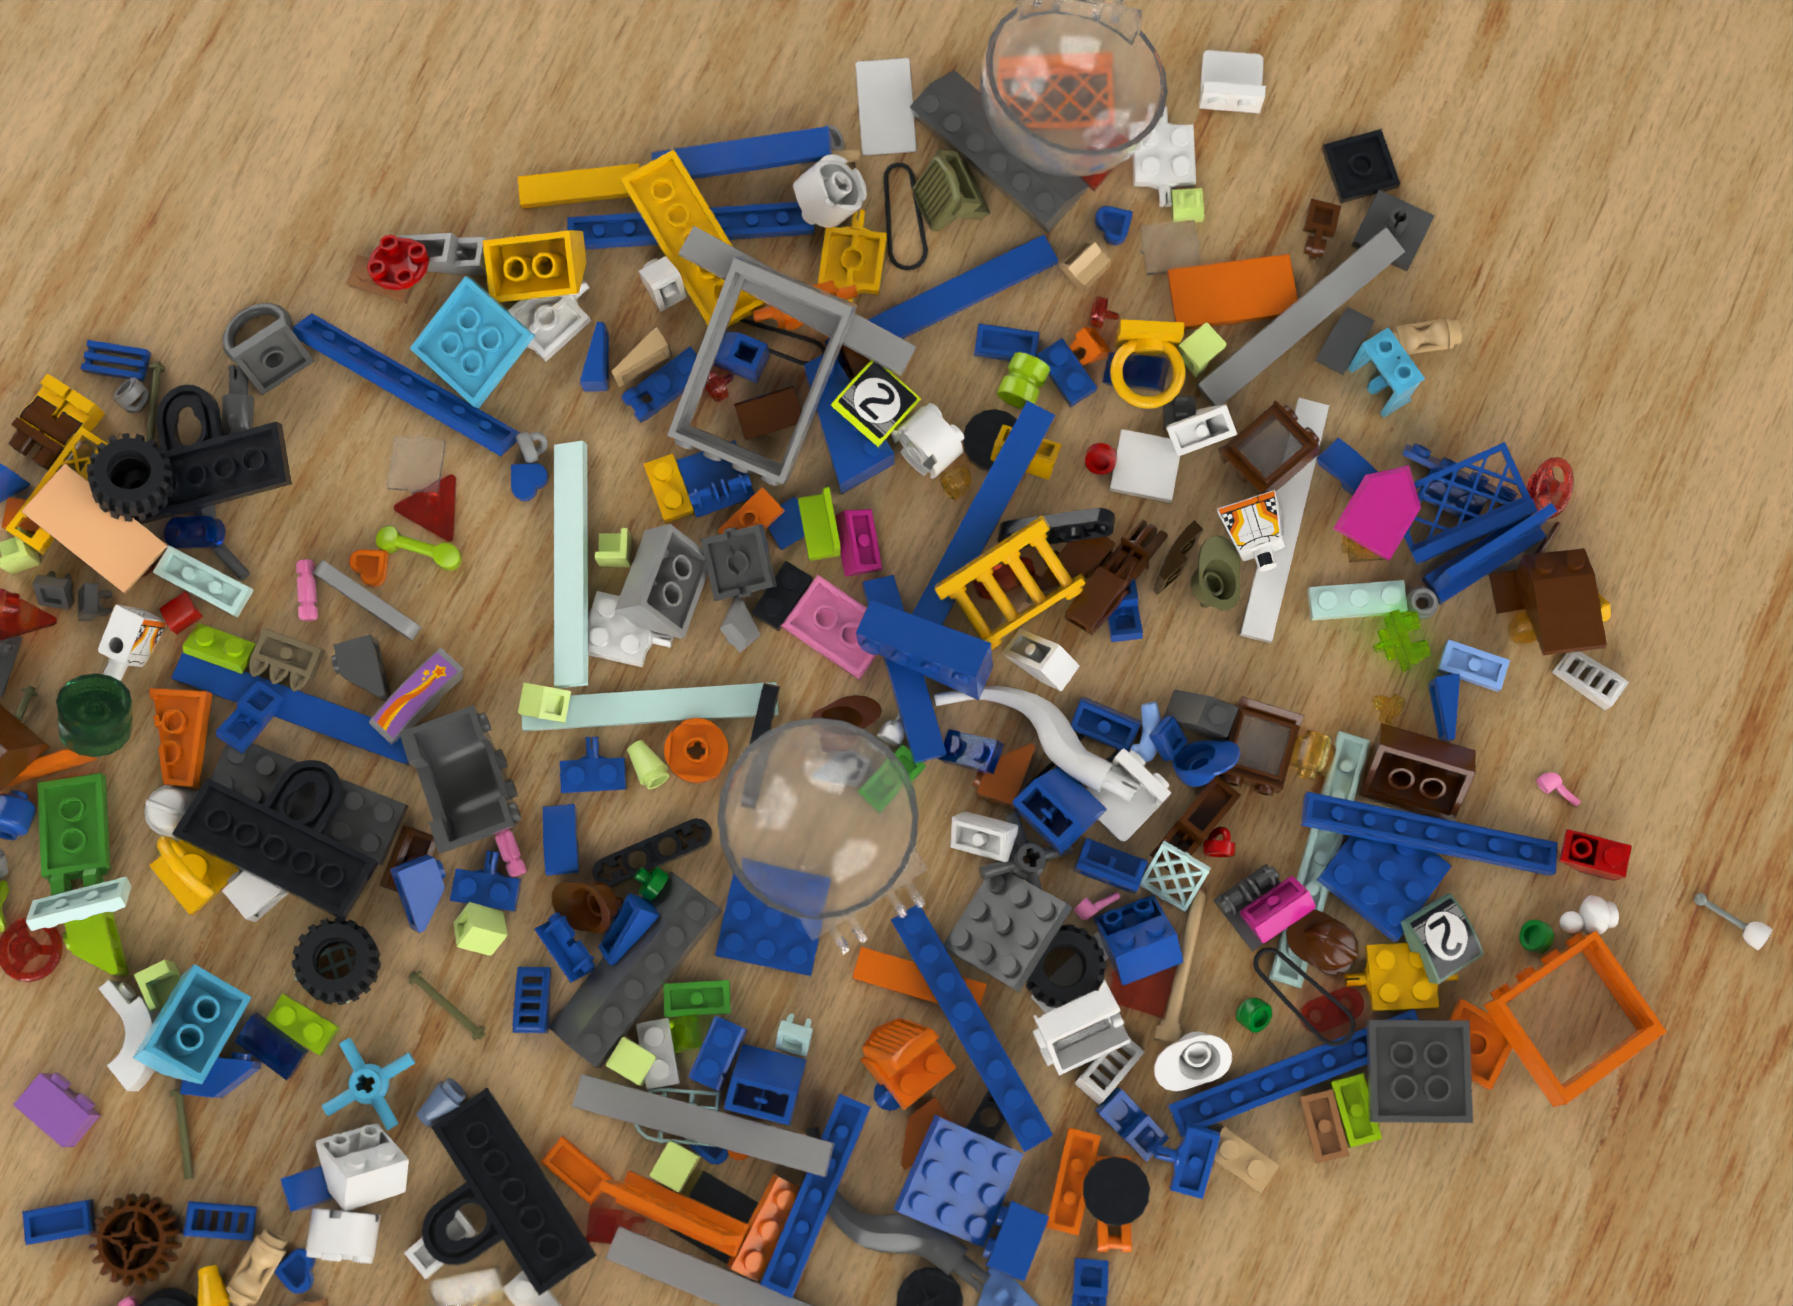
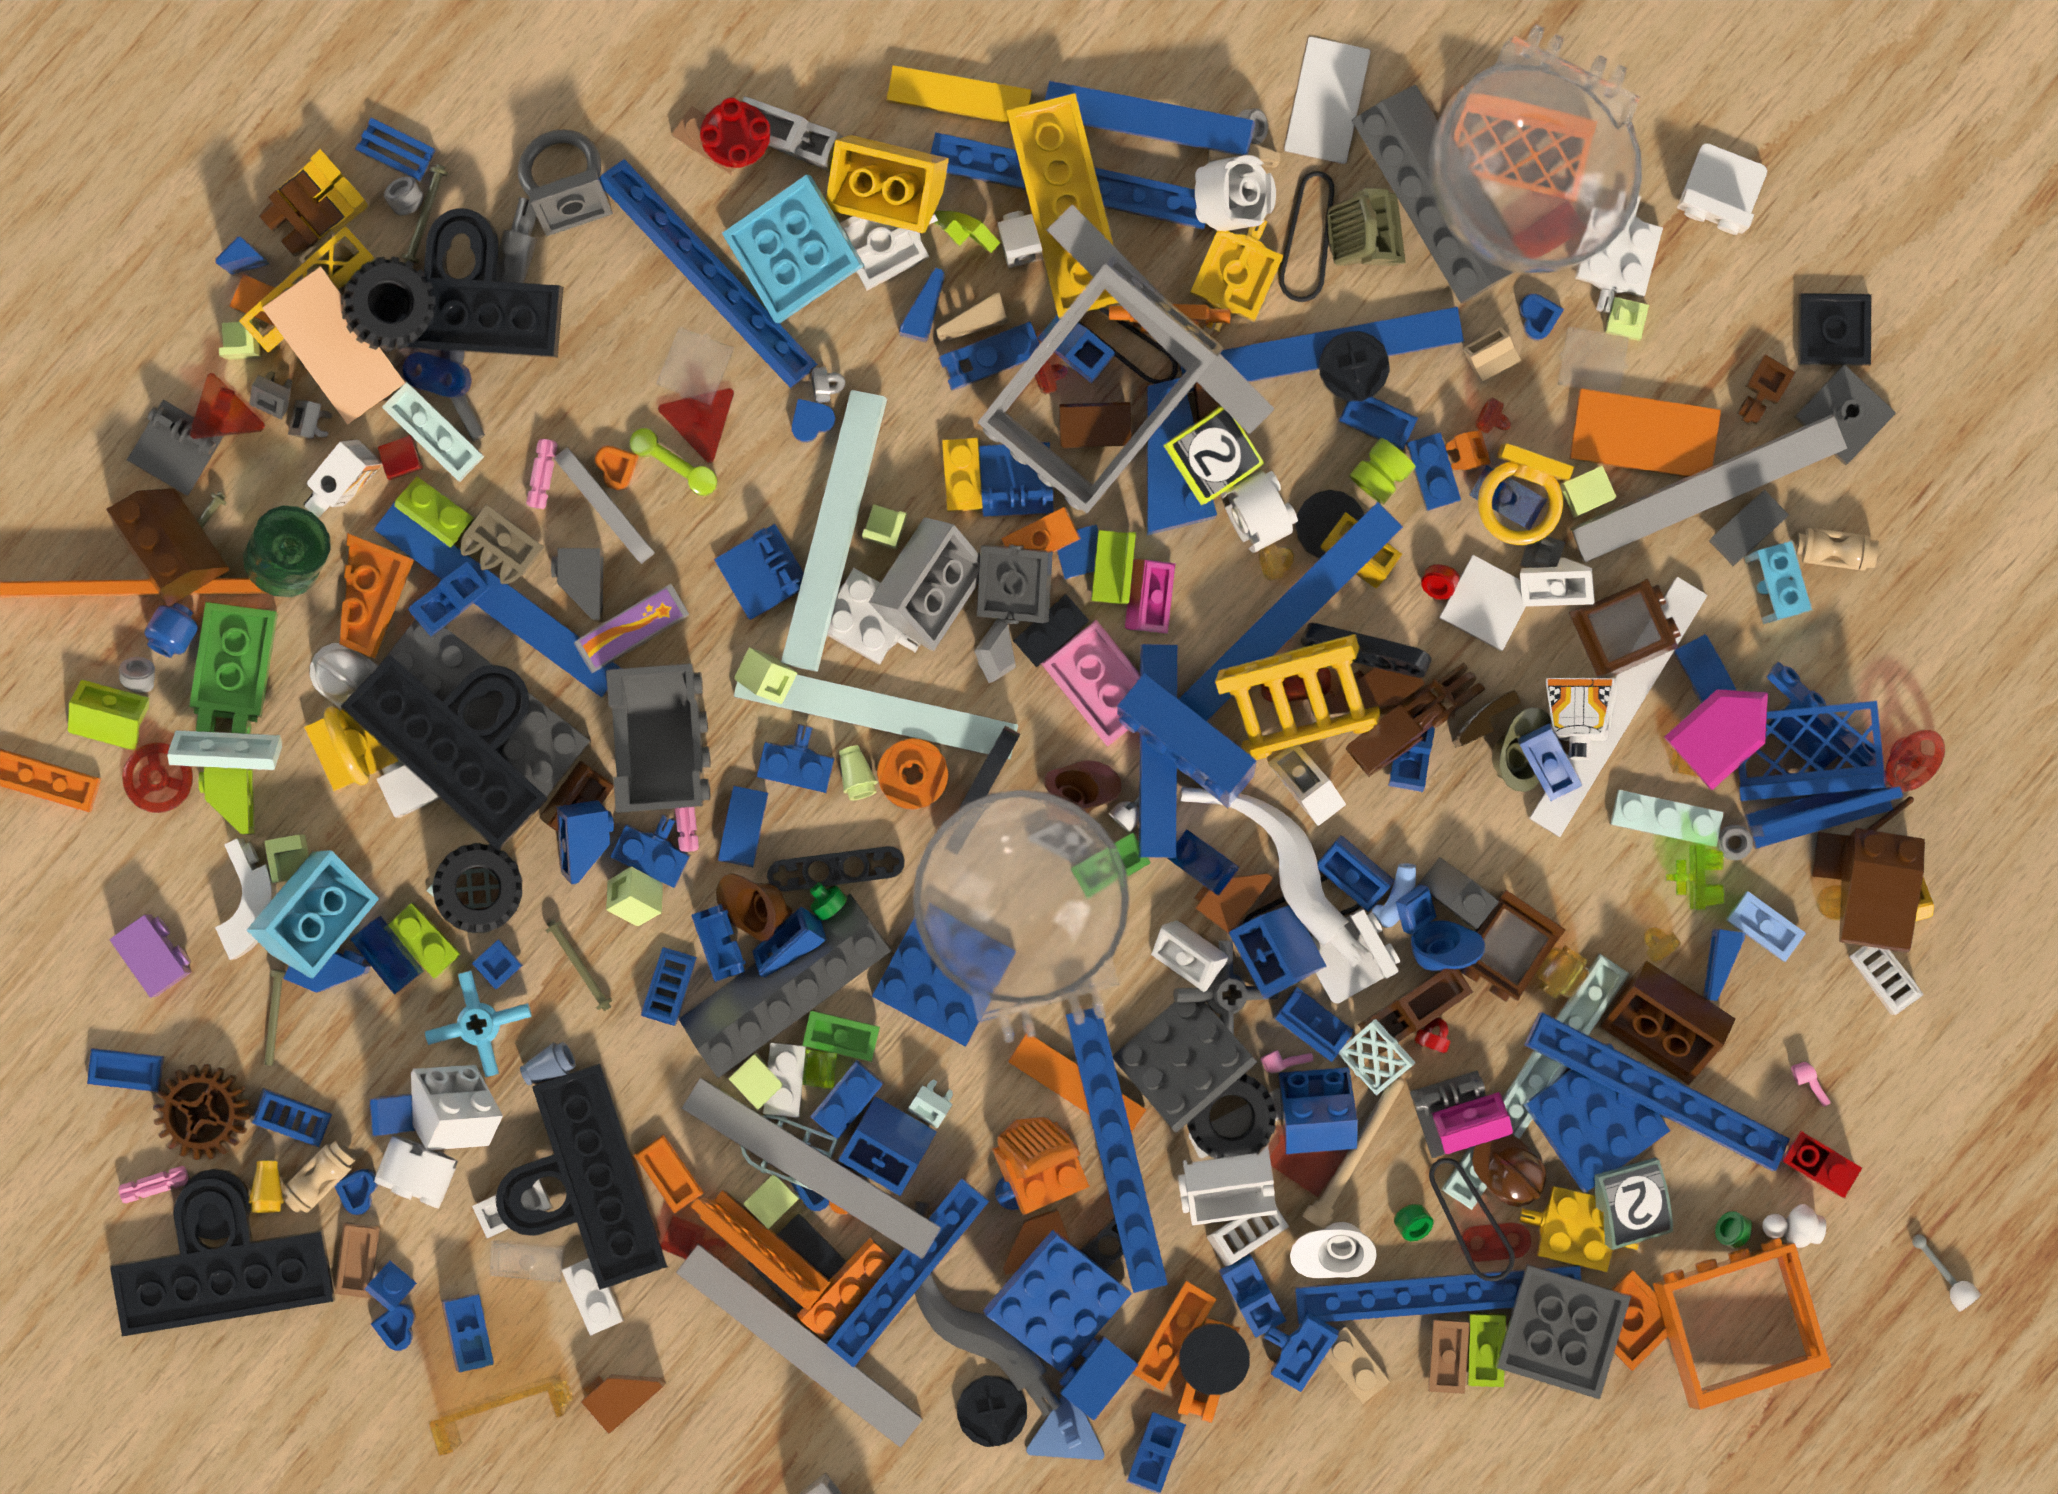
camera: 15 degrees right, 10 degrees up
(373, 1025) = (497, 964): none -> blue plate
(518, 617) = (761, 571): none -> blue hinge
(614, 285) = (961, 226): none -> lime slope
(973, 304) = (1354, 366): none -> black tile
(1243, 577) = (1550, 762): none -> plate

